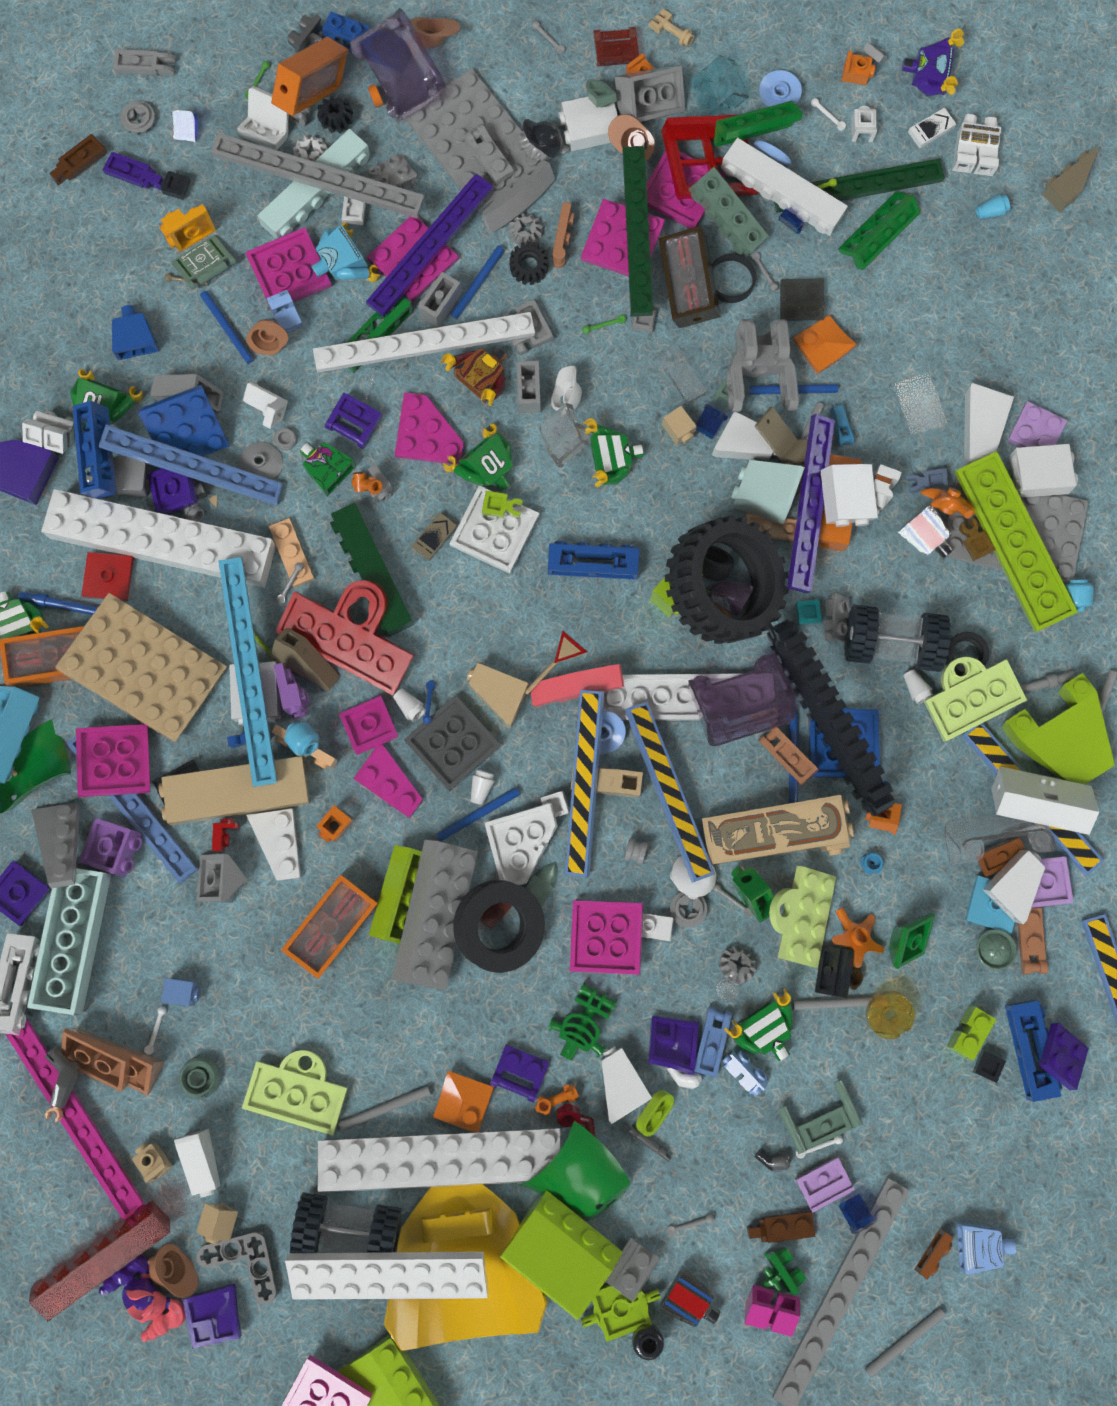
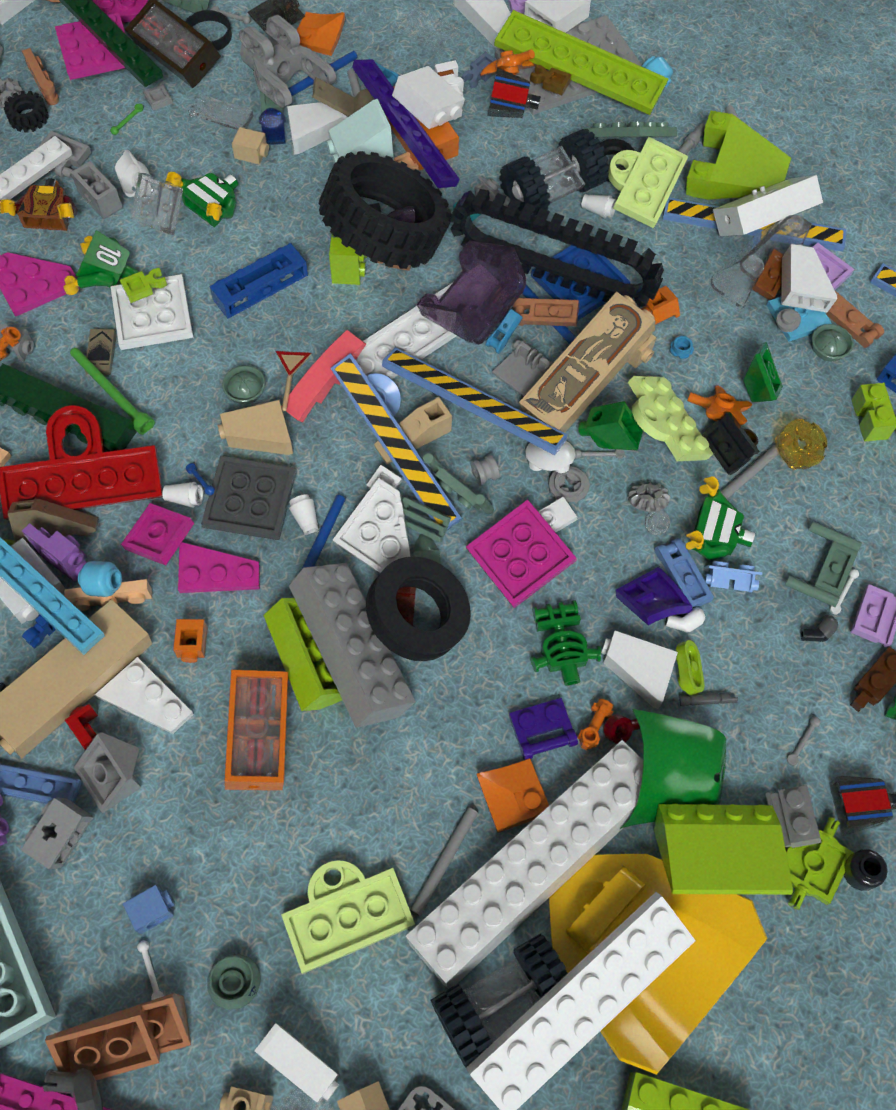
camera: 40 degrees left, 15 degrees down
(170, 892) = (70, 825): none -> light grey brick
(421, 620) = (141, 421): none -> bright green piece
(516, 645) = (244, 384): none -> sand green hat
(557, 858) = (442, 528): none -> sand green tile
(602, 843) = (451, 484): none -> sand green plate
(735, 790) = (522, 368): none -> light grey hinge
(746, 745) = (505, 327): none -> dark azure bar
(975, 906) = (788, 320): none -> light grey plate
(1000, 642) = (633, 129): none -> sand green plate

